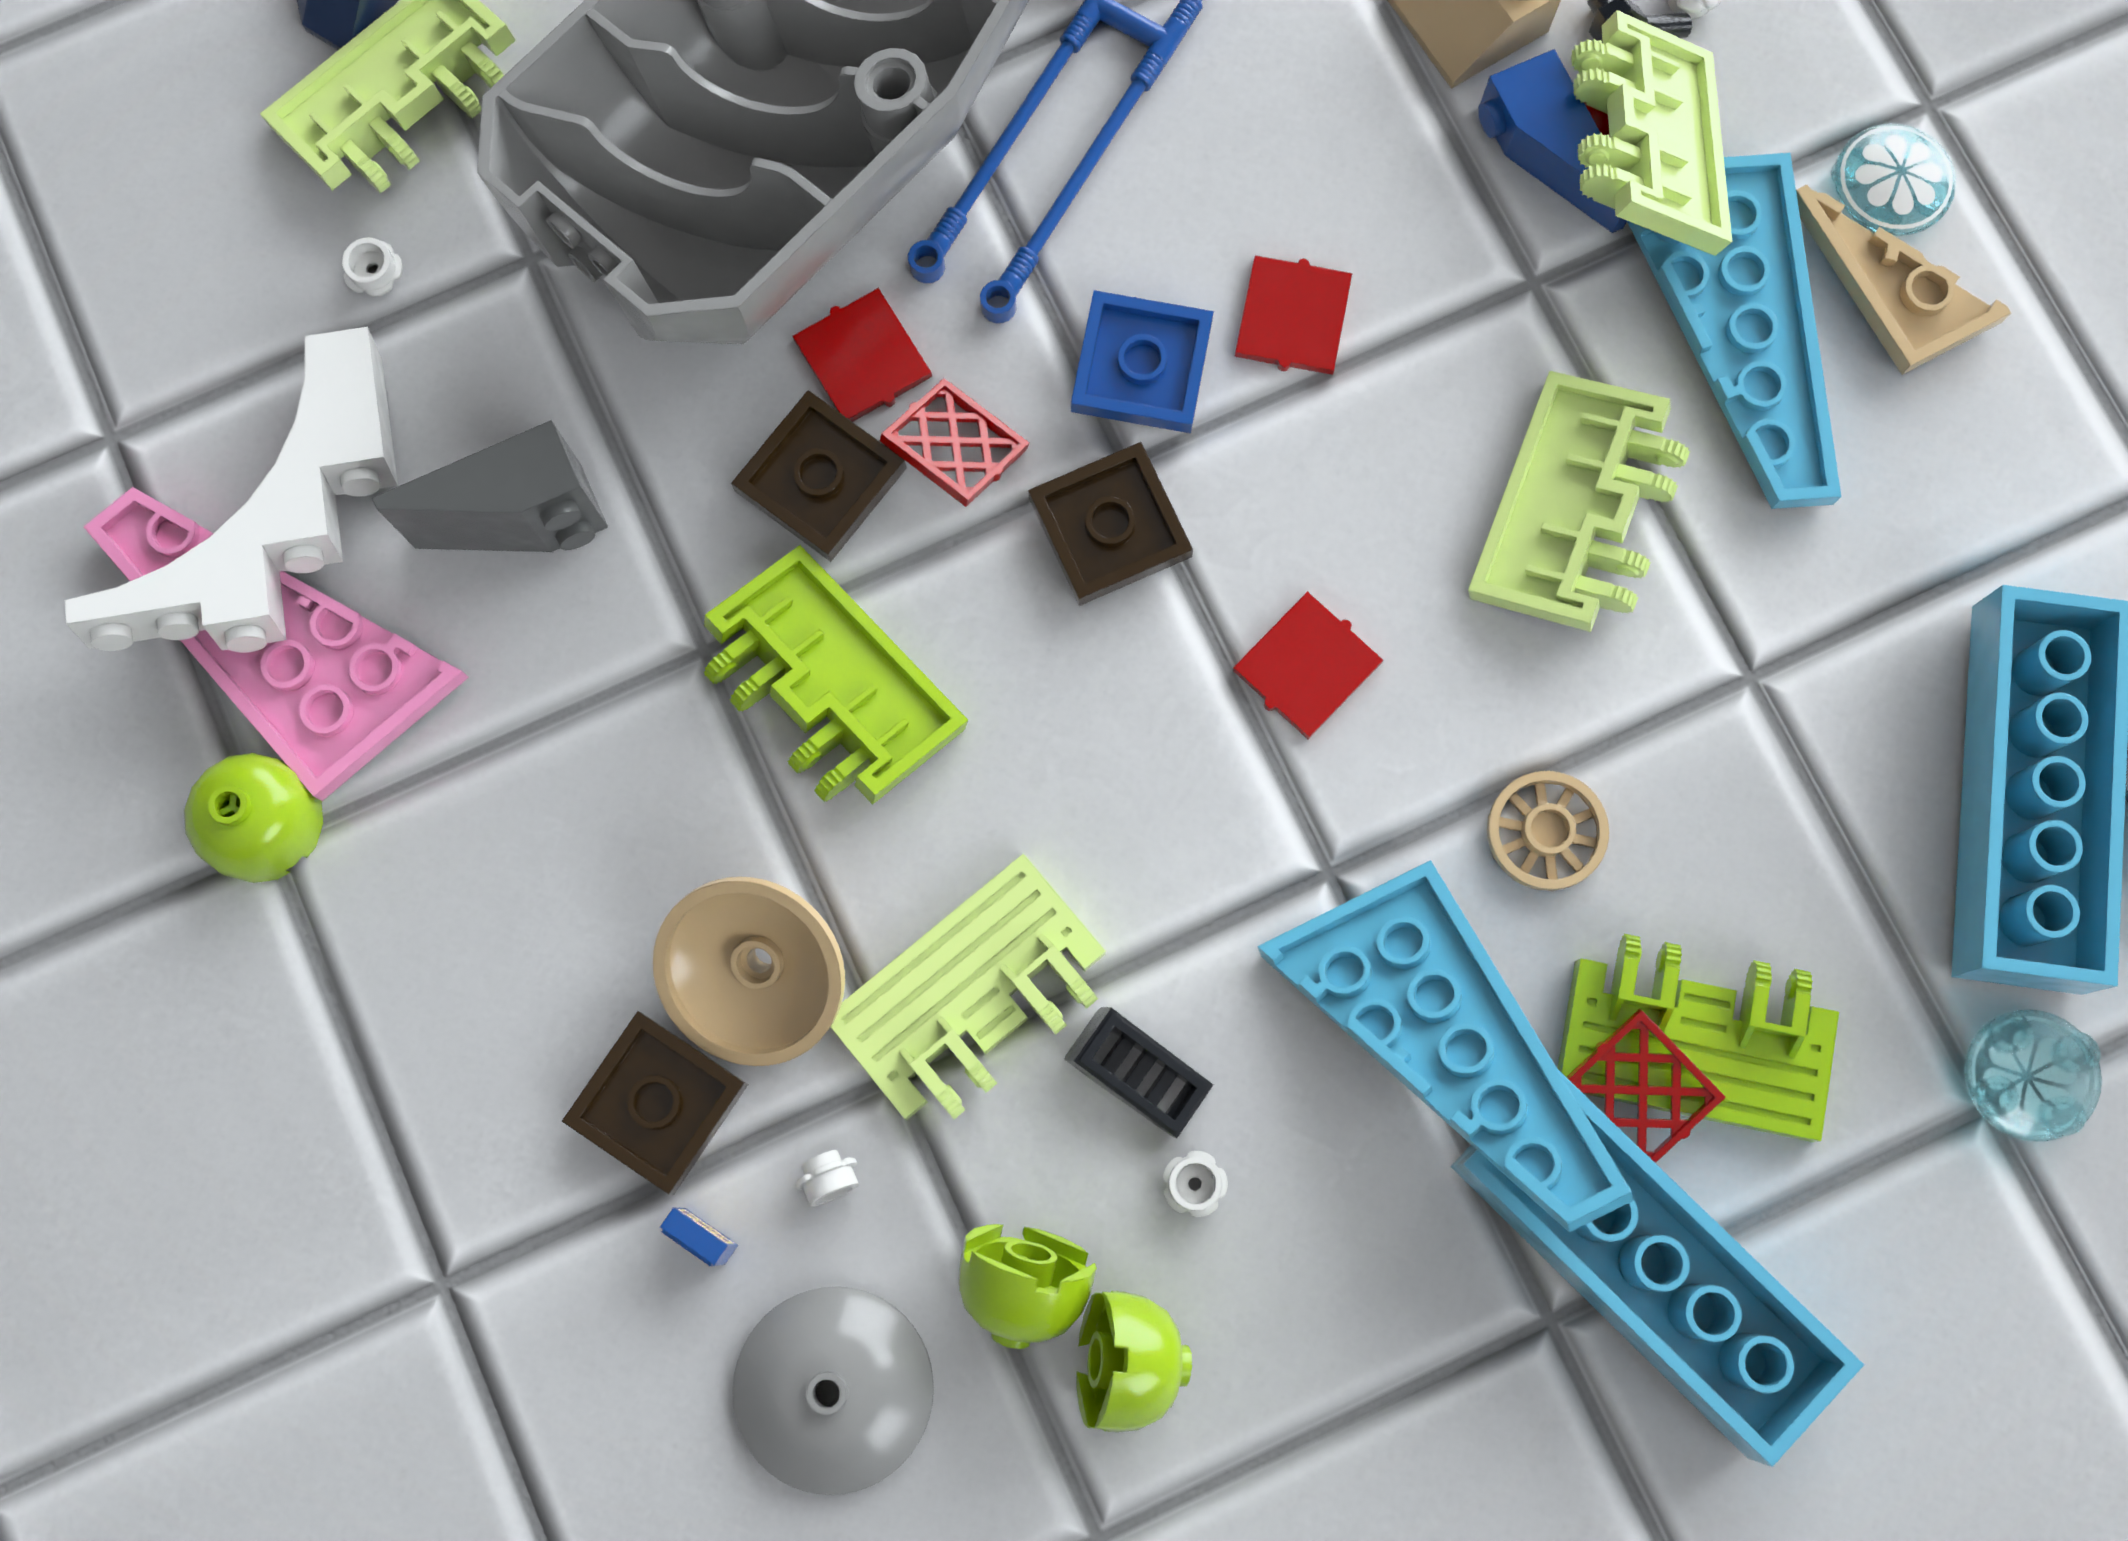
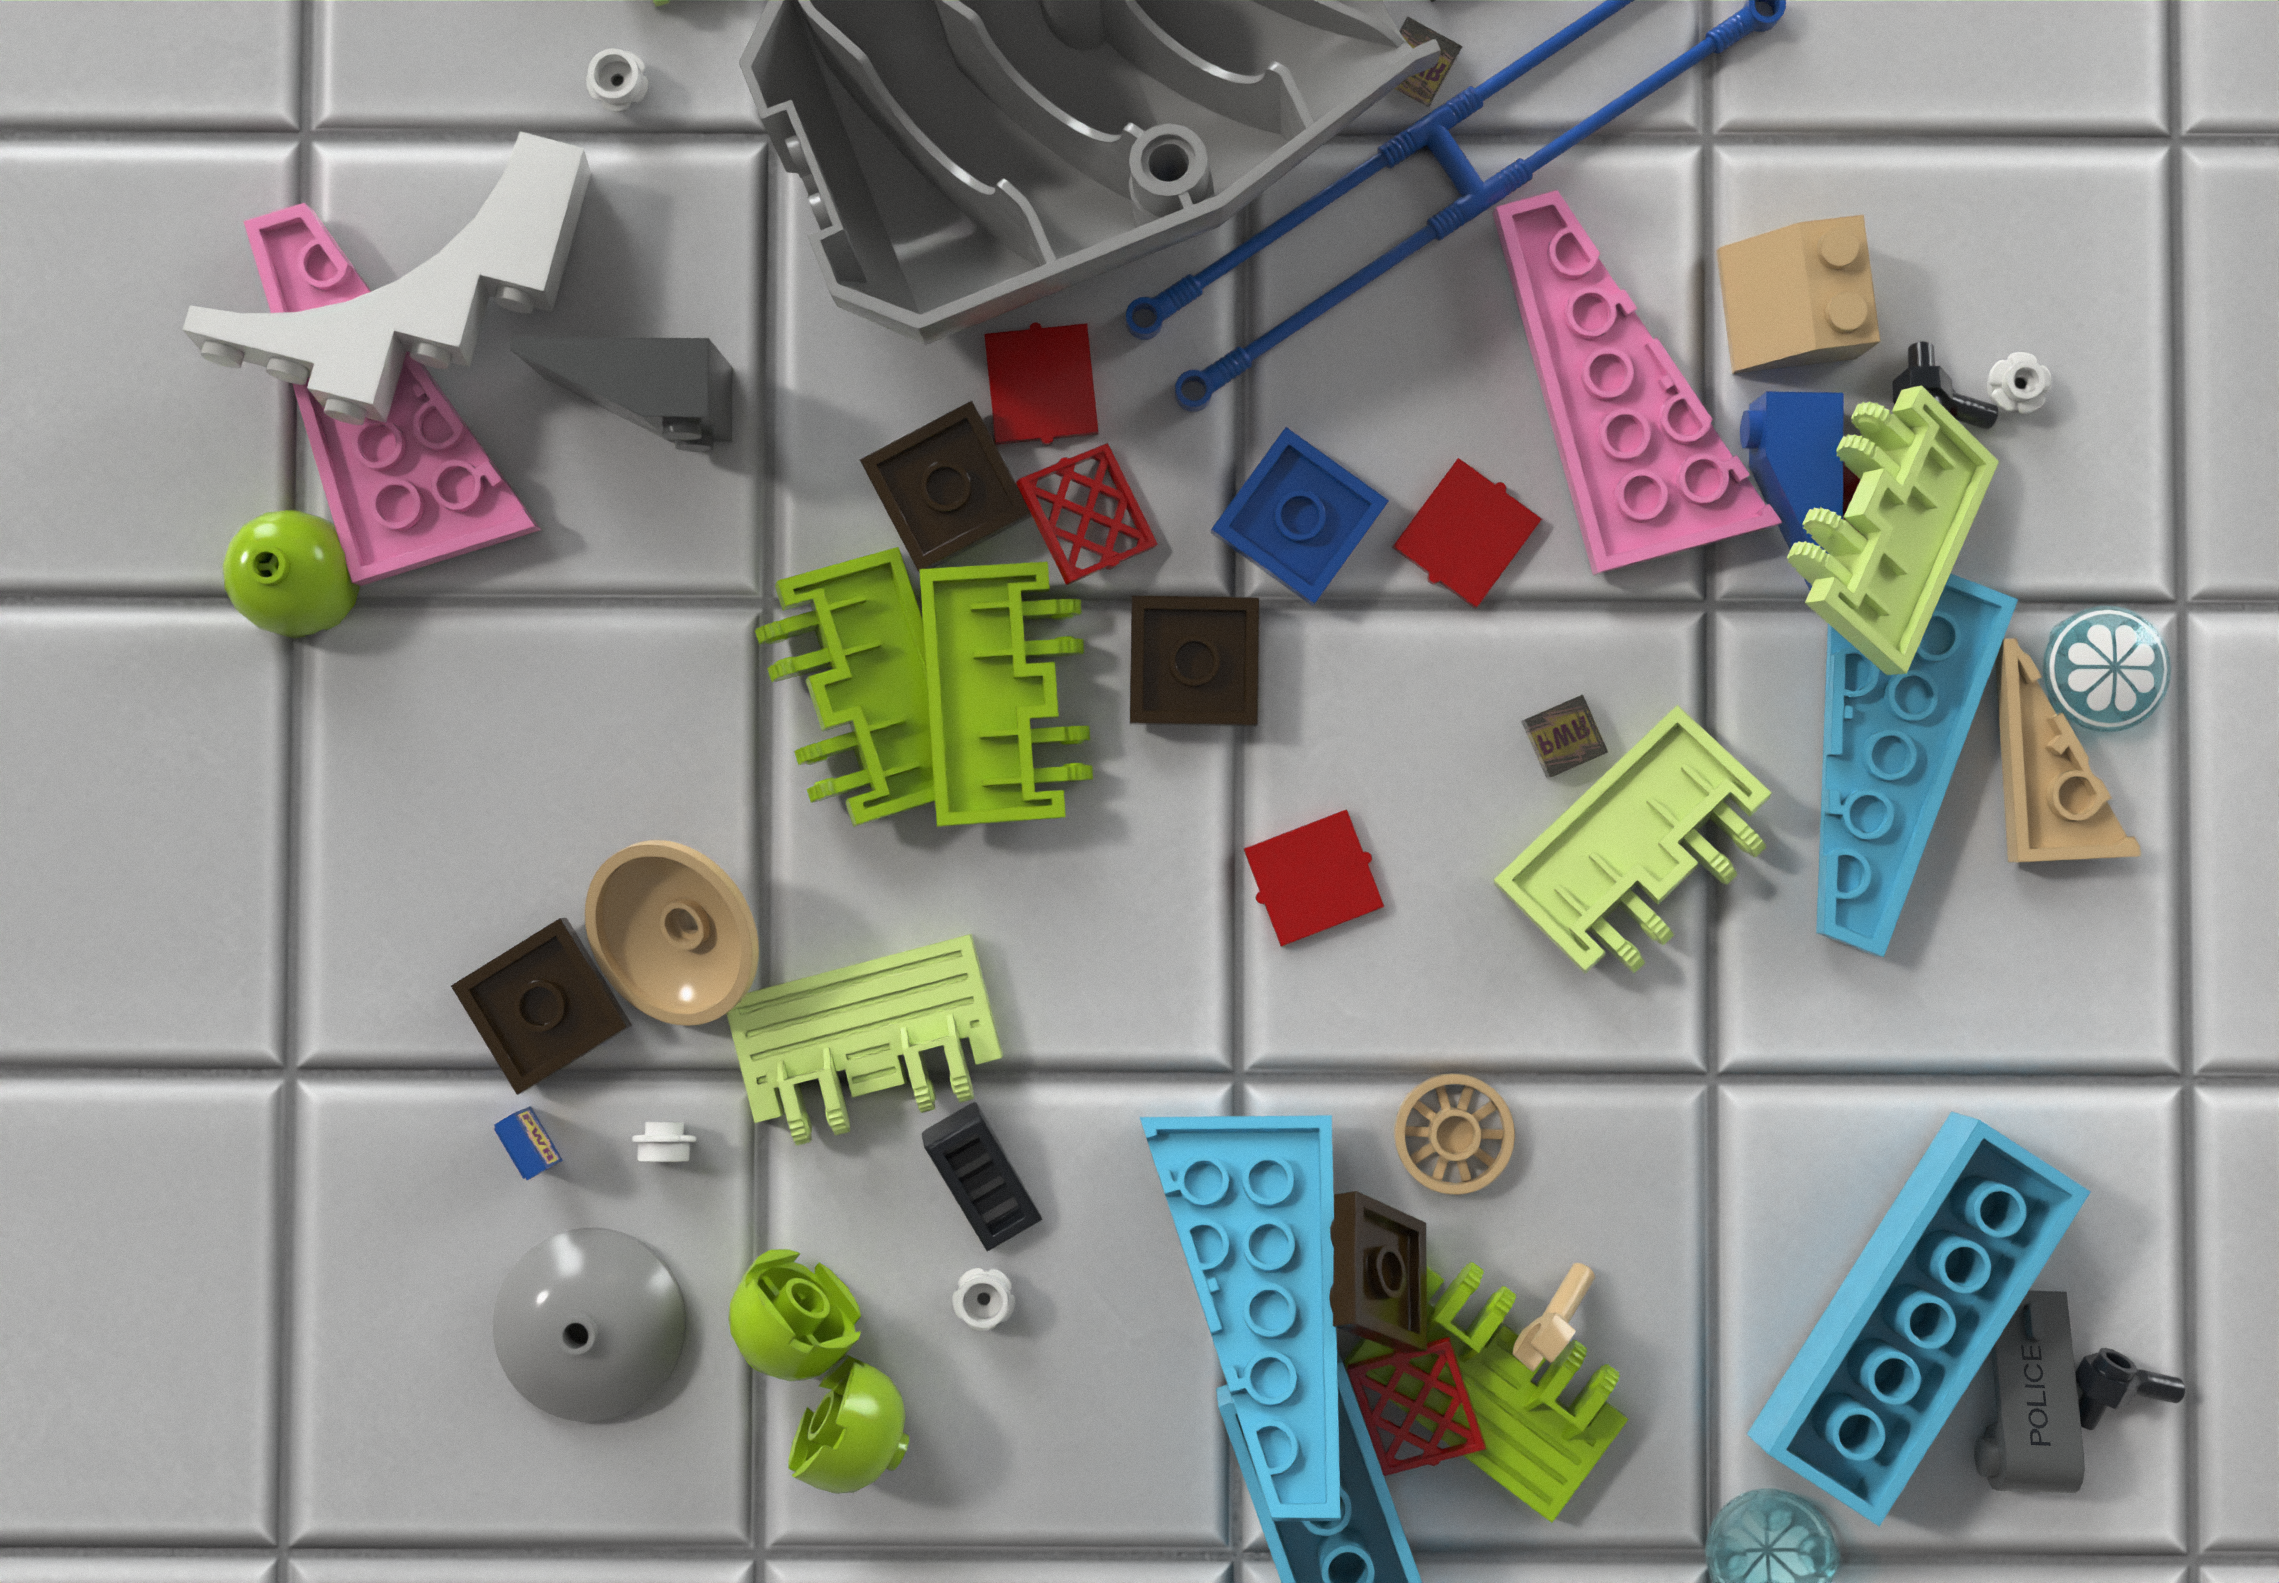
camera: 25 degrees right, 10 degrees up
(941, 628) = (988, 694): none -> lime hinge
(1376, 156) = (1624, 419): none -> bright pink wing
(1465, 443) = (1564, 736): none -> clear smoke tile
(1546, 972) = (1379, 1273): none -> dark brown plate
(1729, 951) = (1551, 1331): none -> tan bar

